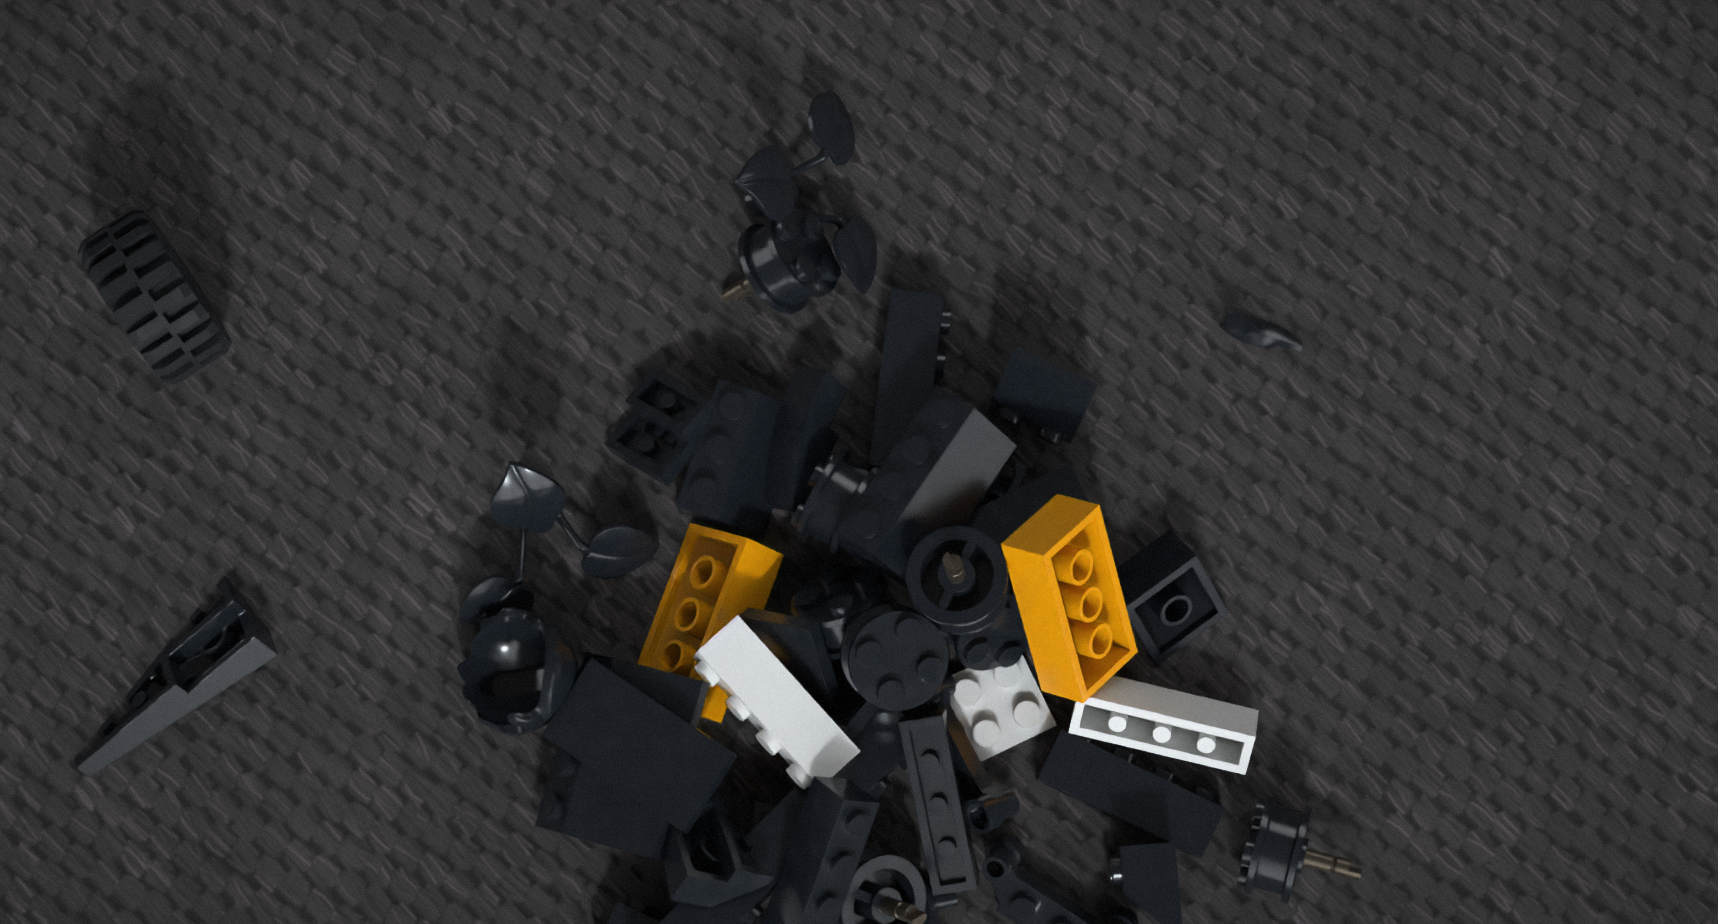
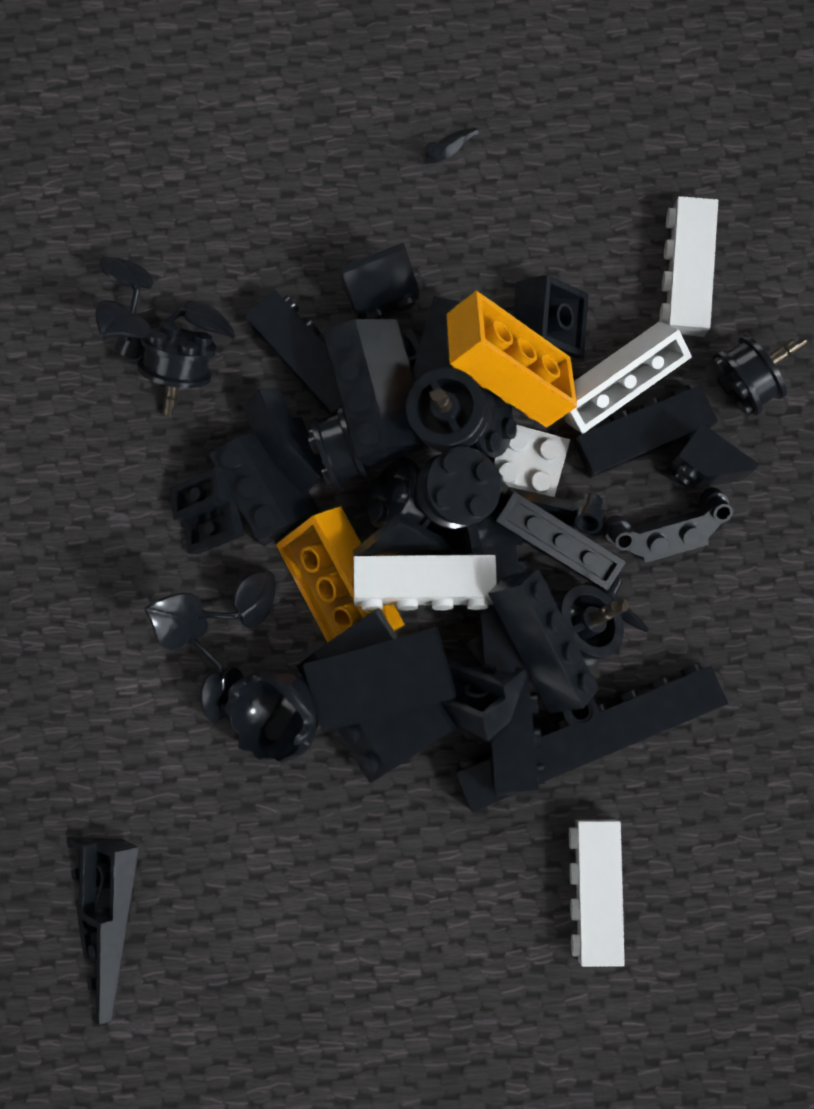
camera: 45 degrees left, 0 degrees up
(1346, 692) = (690, 265): none -> white brick

